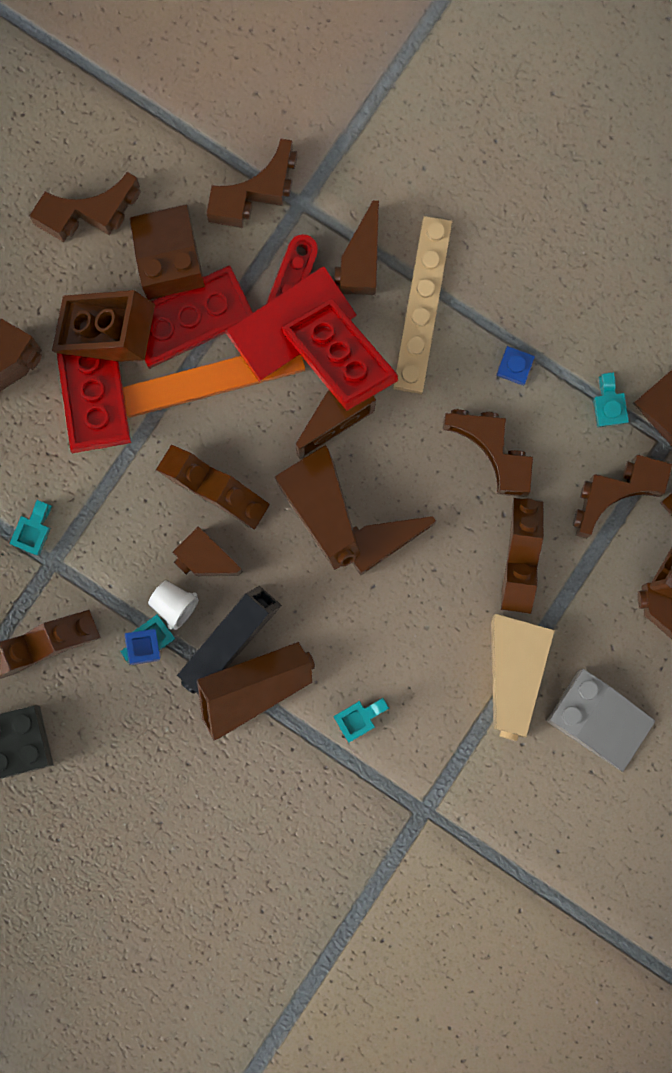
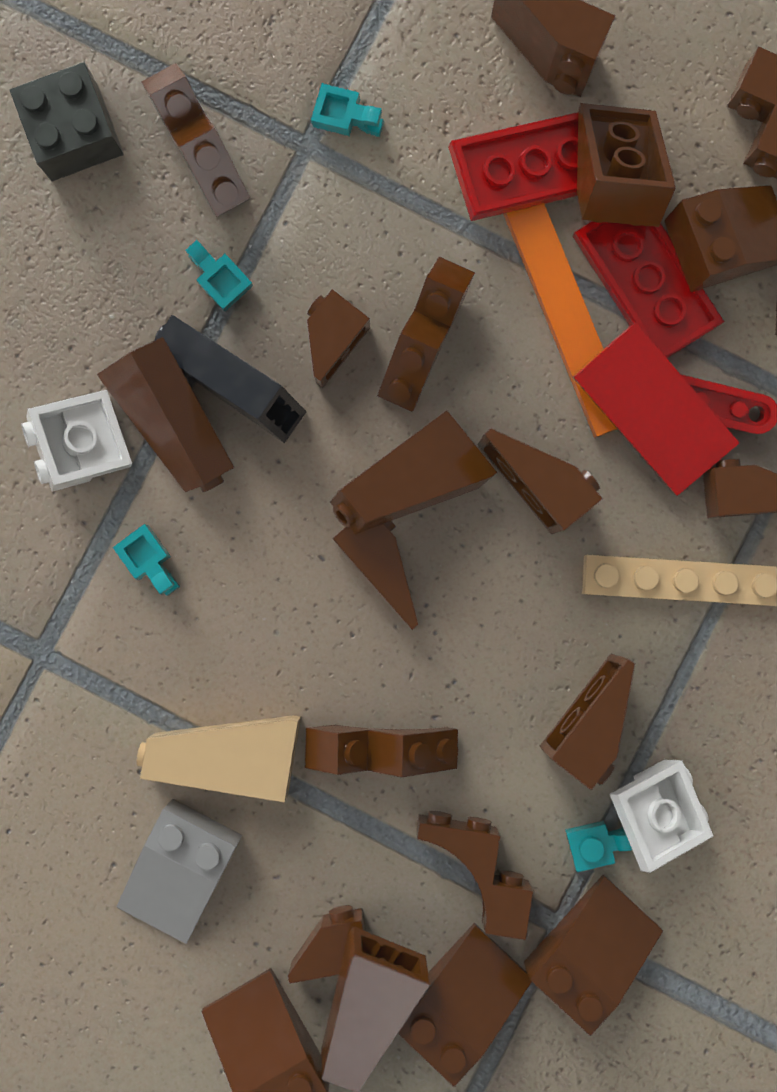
camera: 85 degrees right, 5 degrees up
(142, 647) = (202, 264): blue plate -> none
(173, 604) = (267, 301): white piece -> none
(263, 762) = (76, 440): none -> white plate
(340, 354) = (620, 475): red tile -> none
(487, 431) = (541, 686): reddish brown arch -> none
(515, 365) = (641, 714): blue plate -> none
(522, 398) = (591, 728): none -> reddish brown slope
(590, 355) = (661, 814): none -> white plate

